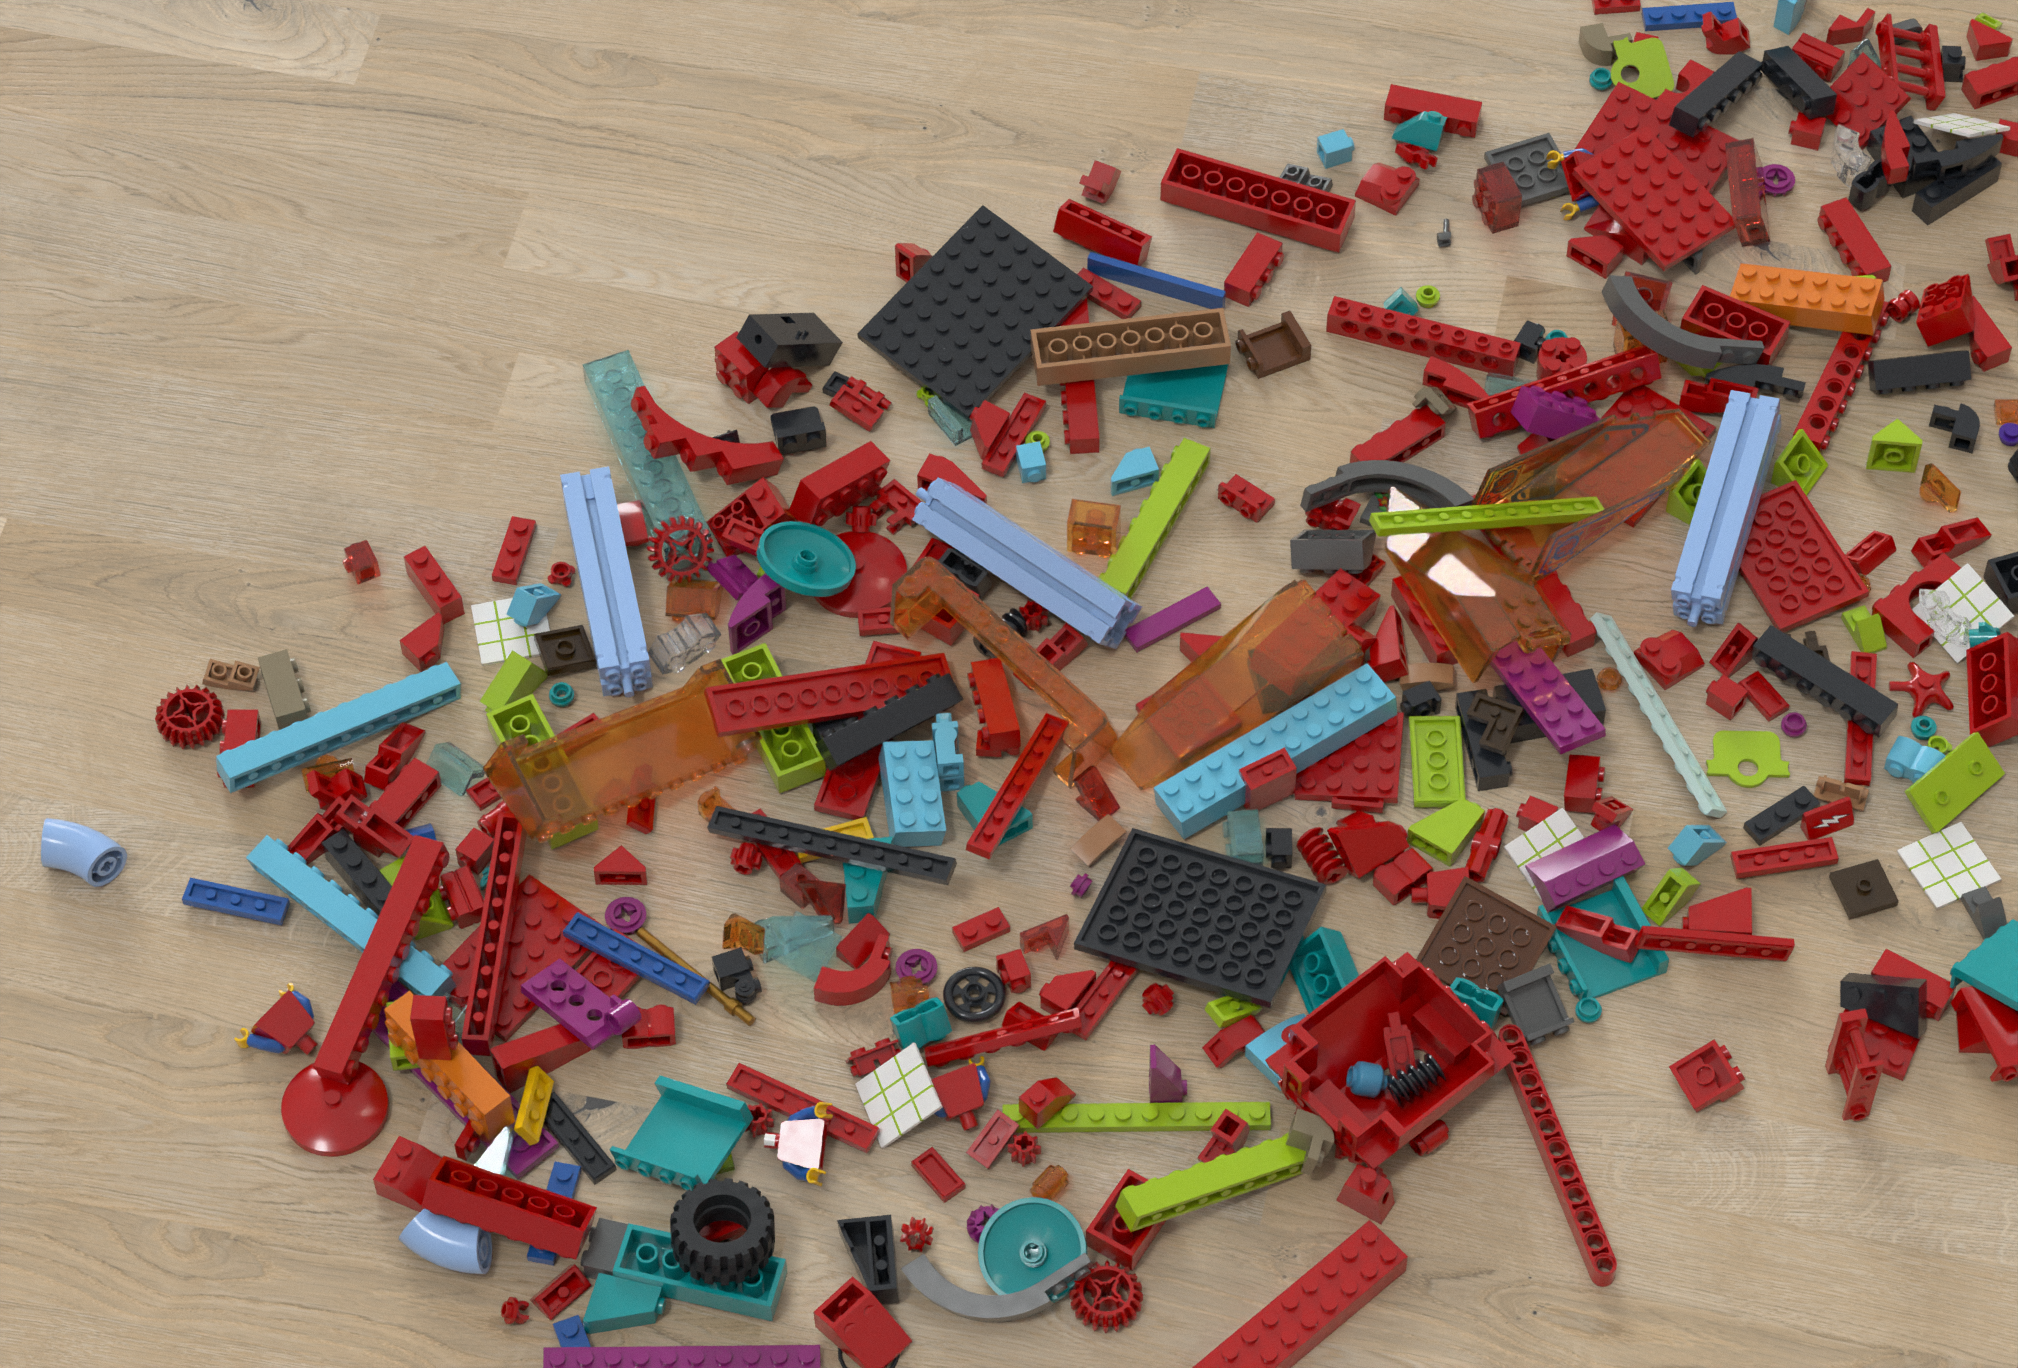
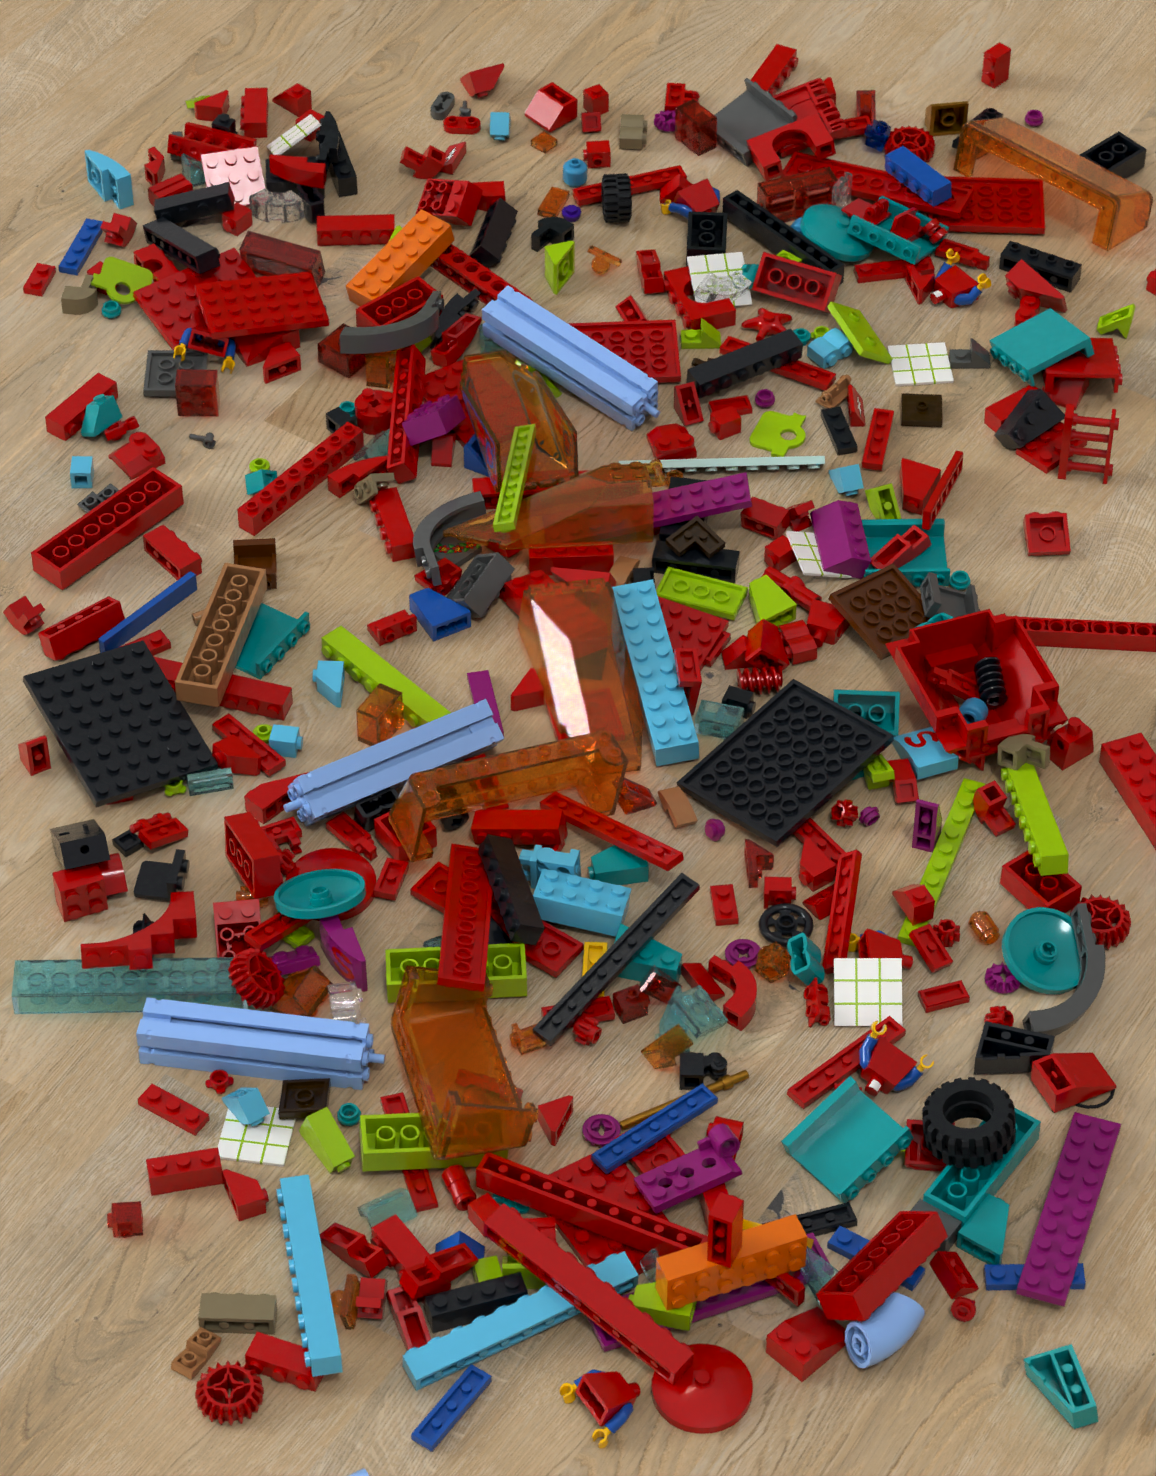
camera: 70 degrees left, 10 degrees down
(1167, 1025) = (869, 815): none -> magenta plate
(1277, 527) = (438, 613): none -> blue slope

